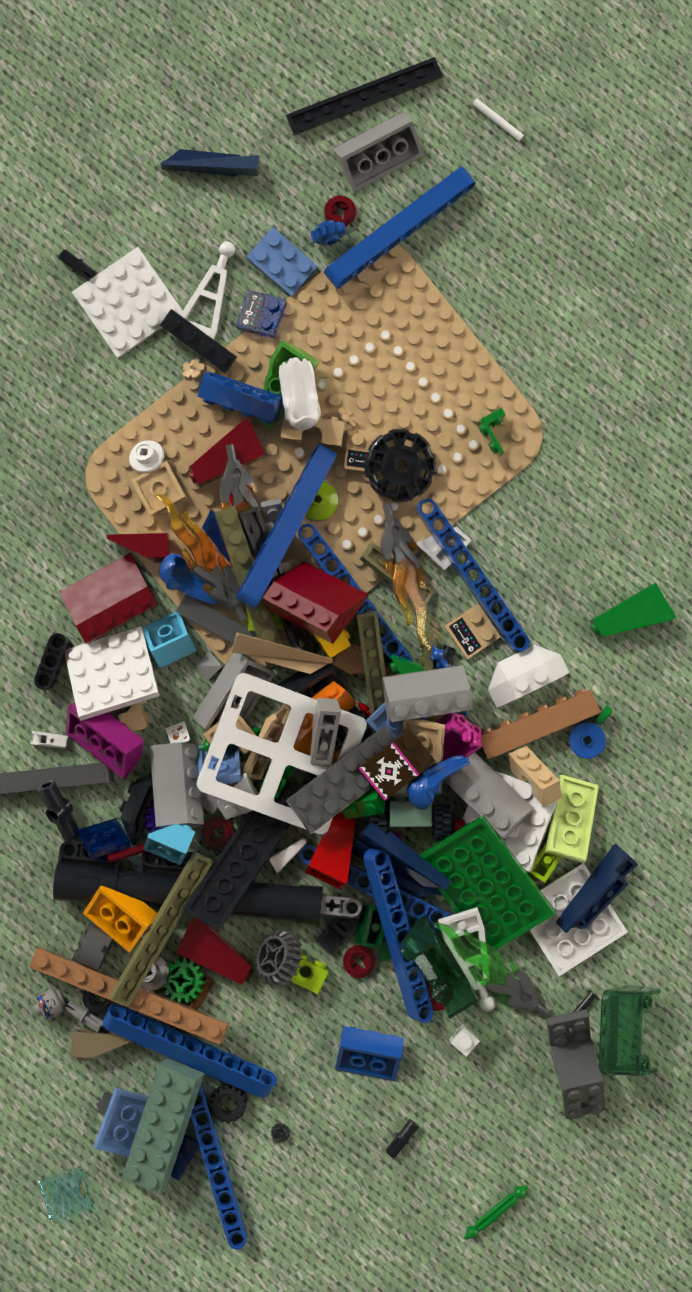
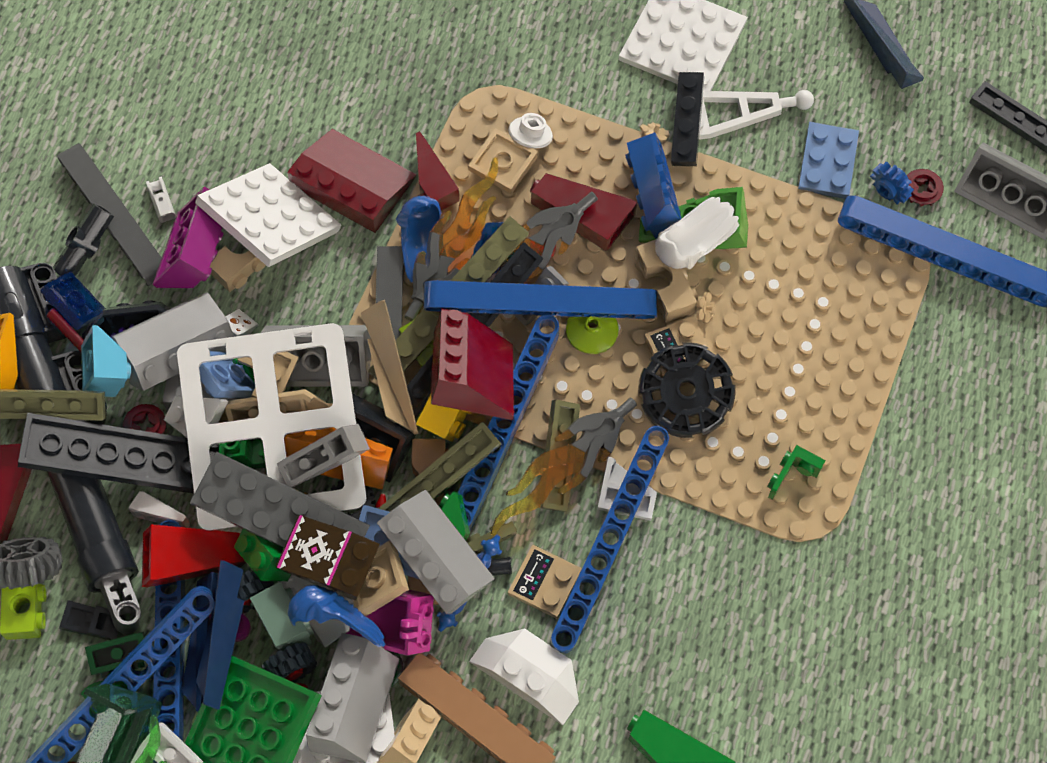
camera: 60 degrees right, 20 degrees down
(44, 669) = (238, 151): black beam -> none
(169, 639) = (340, 258): medium azure slope -> none
(208, 665) = (336, 314): light grey slope -> none
(261, 314) = (759, 166): clear blue plate -> none
(349, 960) = (63, 654): dark red gear -> none

